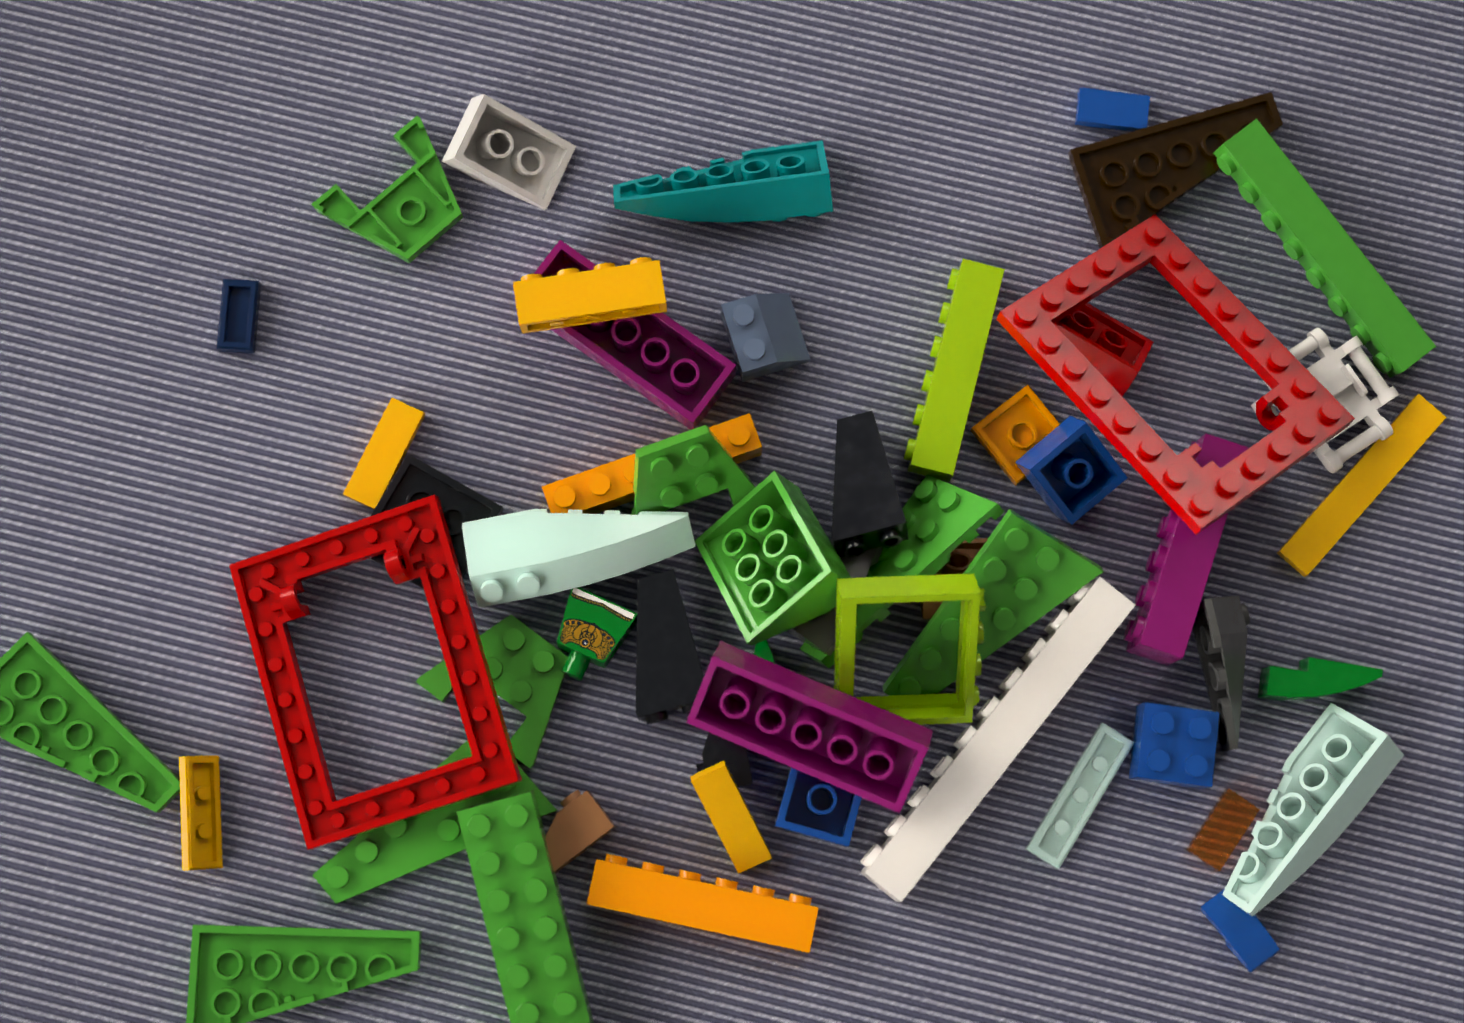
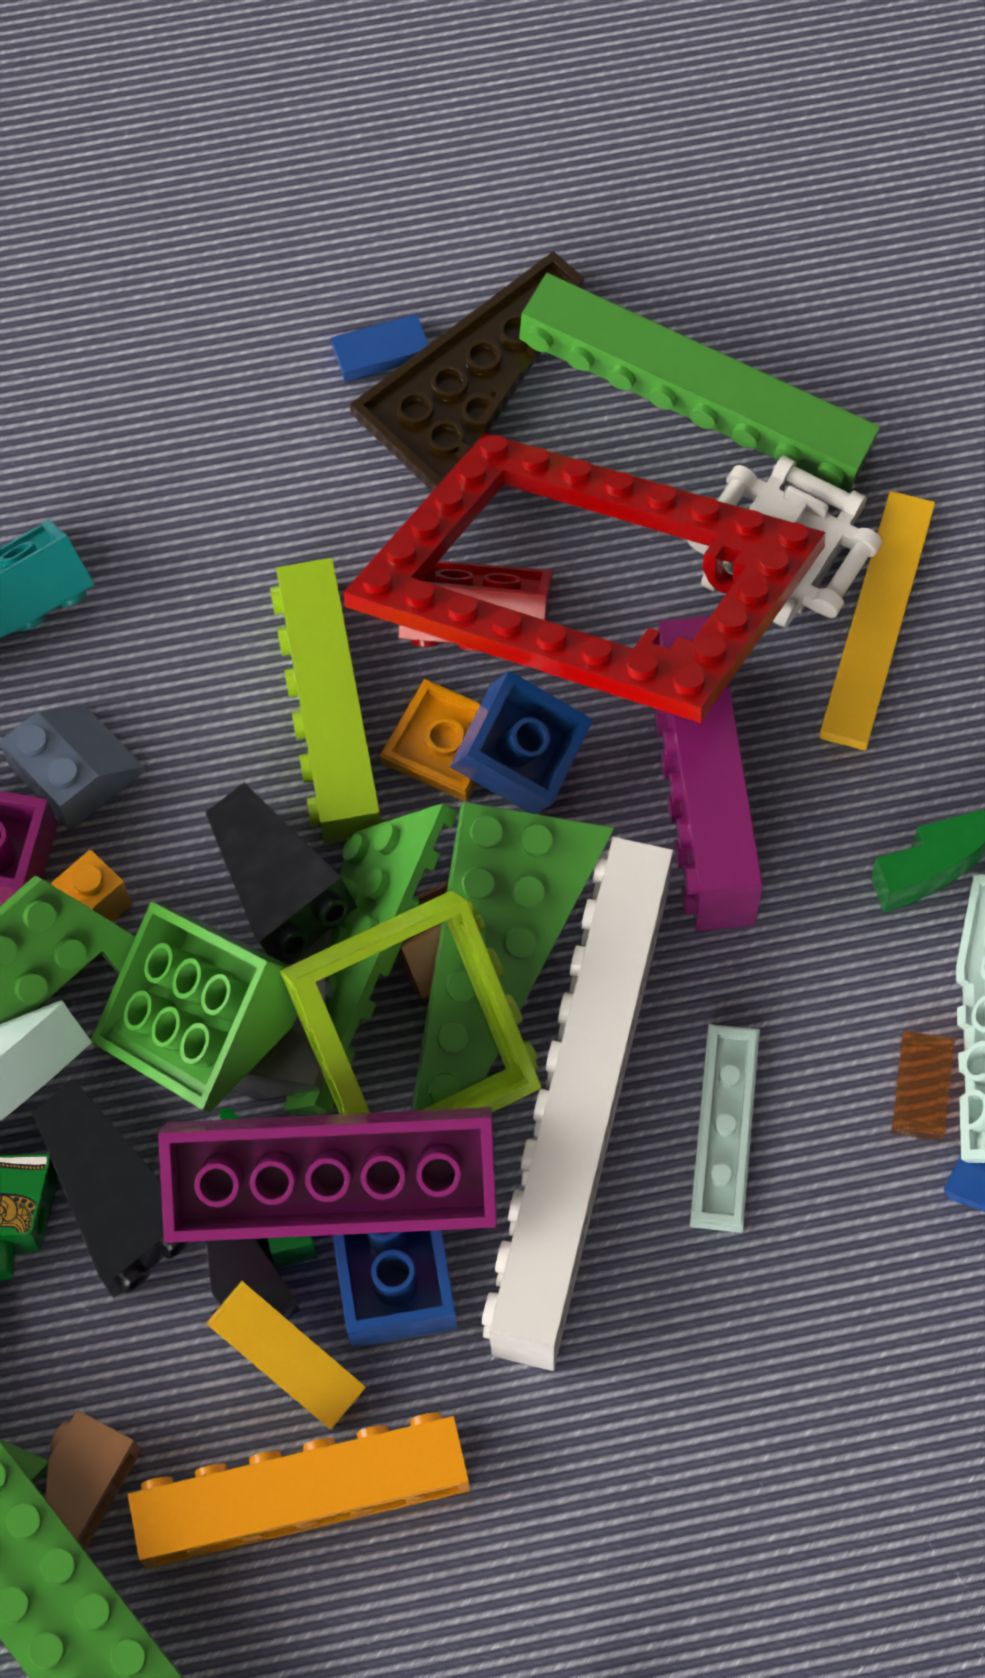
camera: 20 degrees left, 15 degrees down
(1174, 745) = (809, 1008): blue brick -> none
(1221, 646) = (805, 865): dark grey wedge -> none

